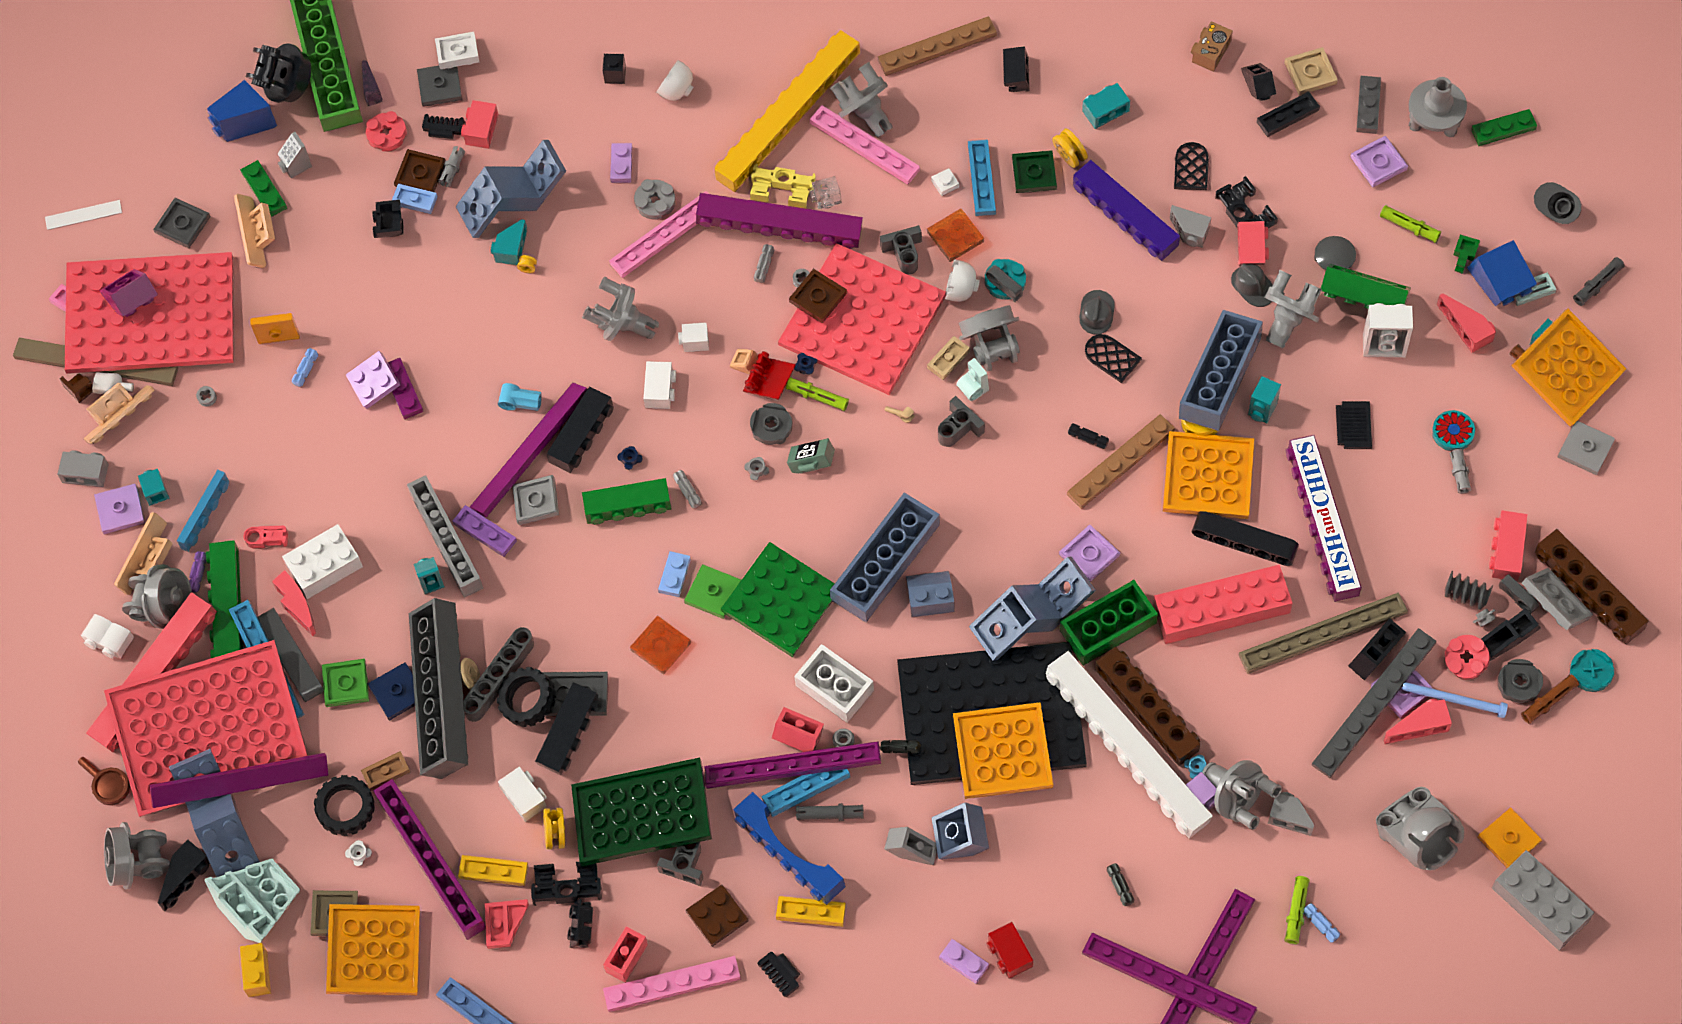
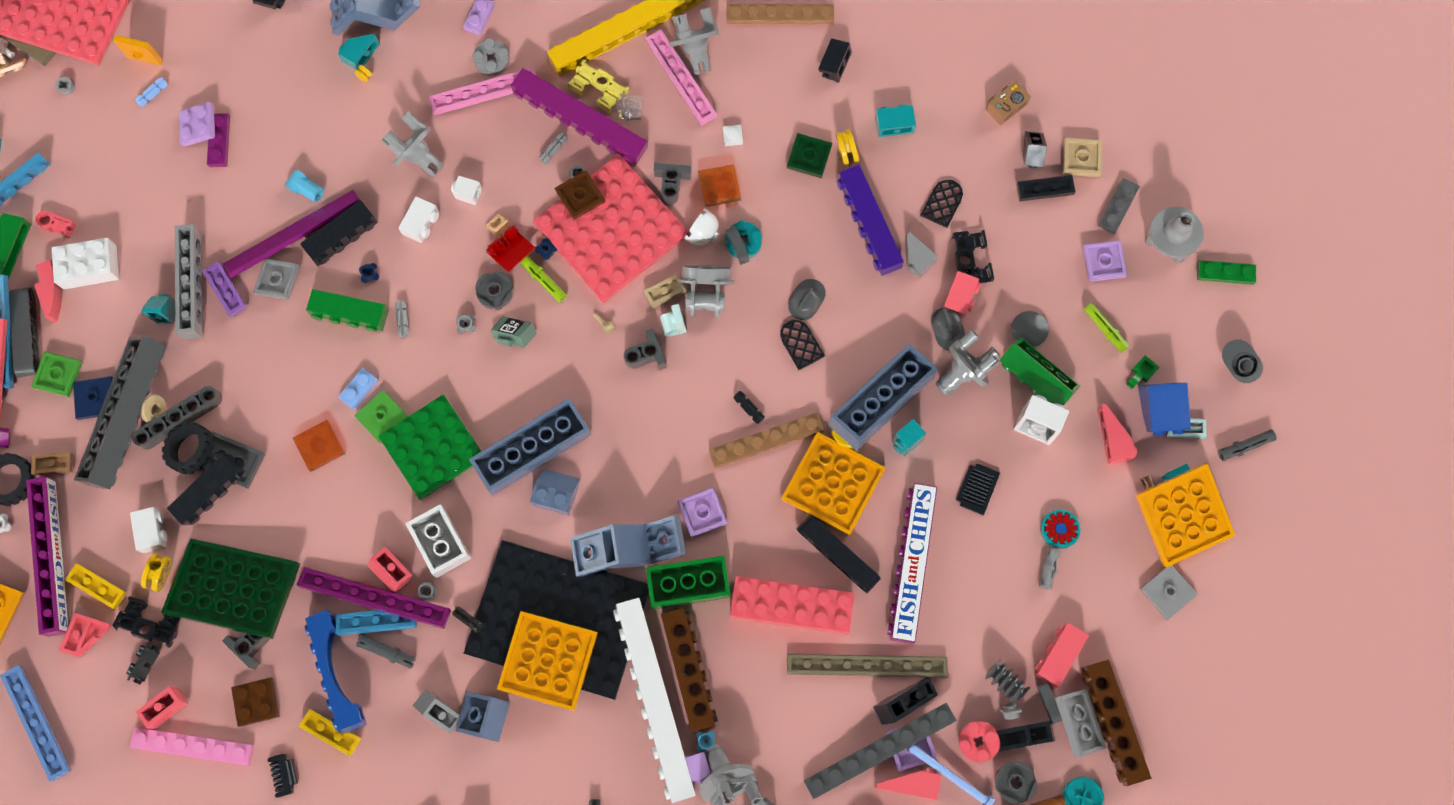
camera: 20 degrees right, 10 degrees up
(981, 178) = (763, 144): dark azure plate -> none

